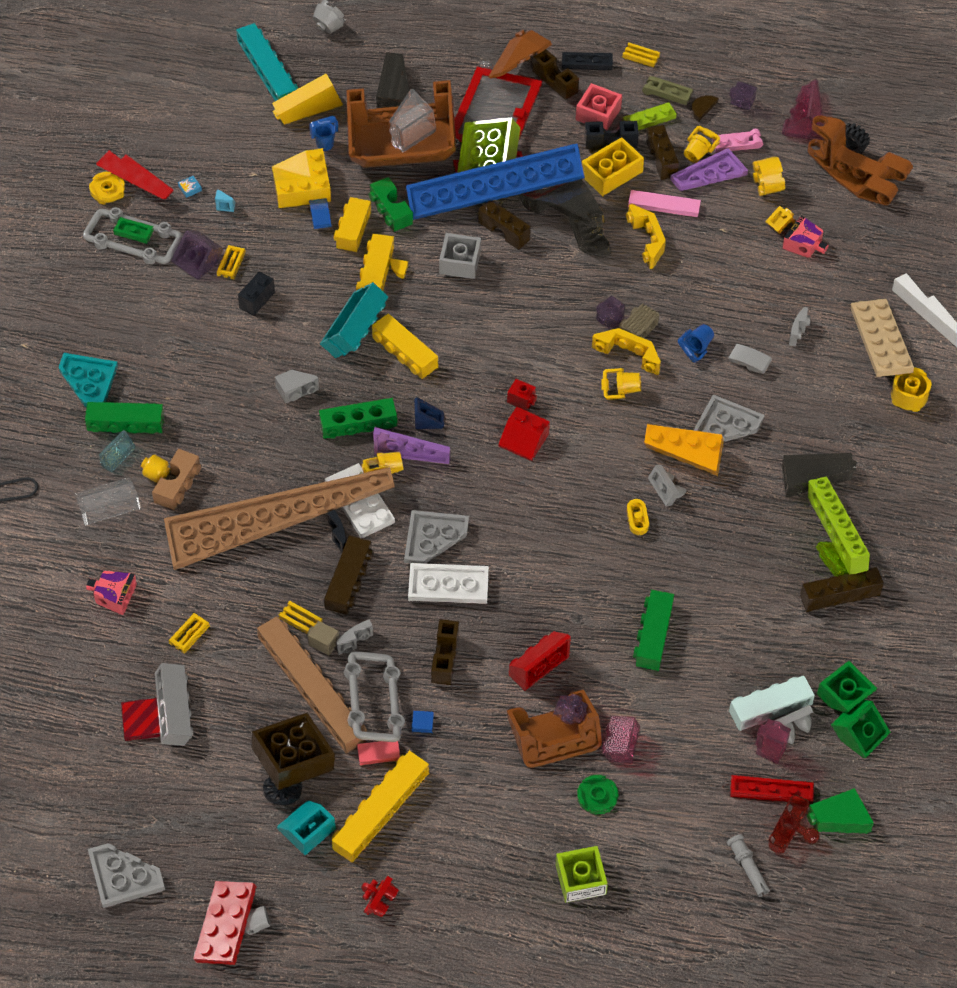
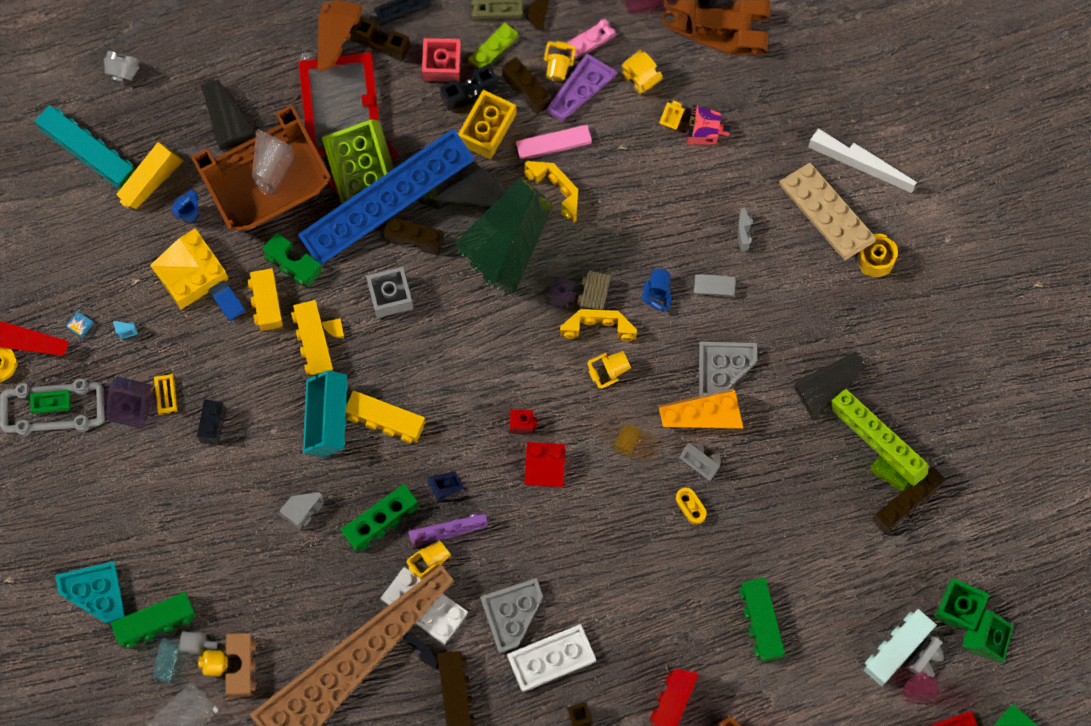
camera: 25 degrees left, 15 degrees up
(147, 447) = (195, 643): none -> light grey piece
(582, 240) = (506, 235): none -> clear green windscreen
(607, 444) = (627, 440): none -> clear yellow brick

